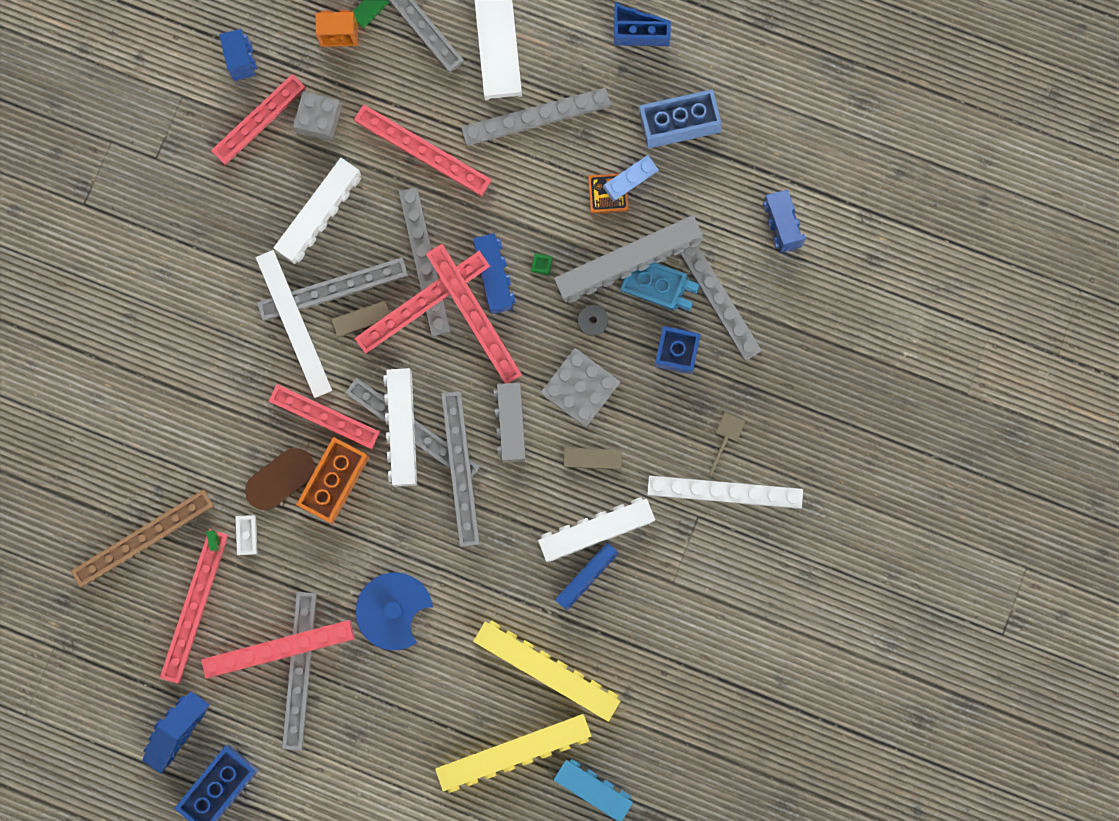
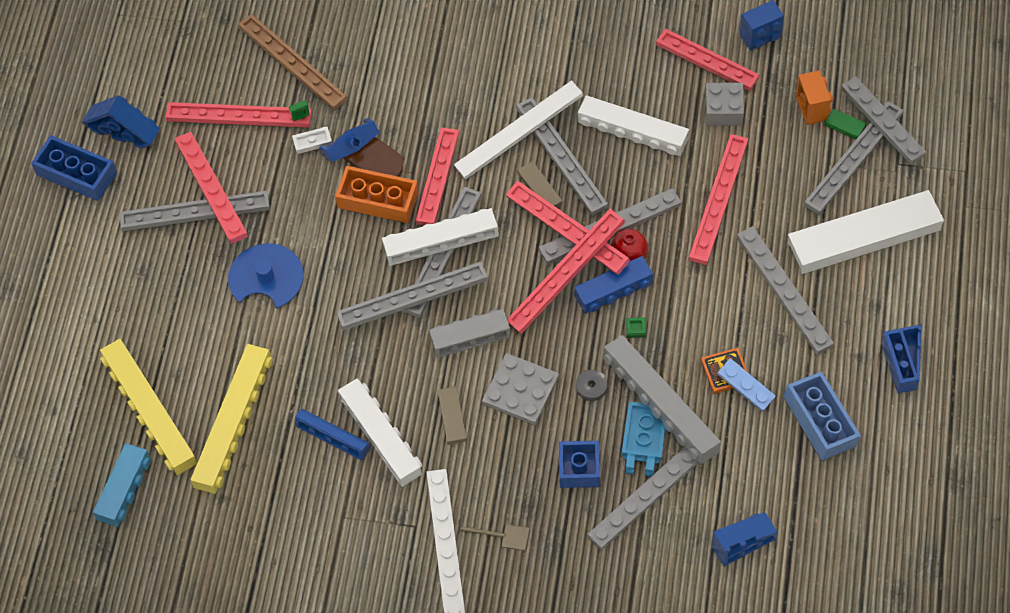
camera: 75 degrees right, 20 degrees down
(263, 494) = (351, 141): none -> blue piece
(457, 245) = (631, 244): none -> red cylinder

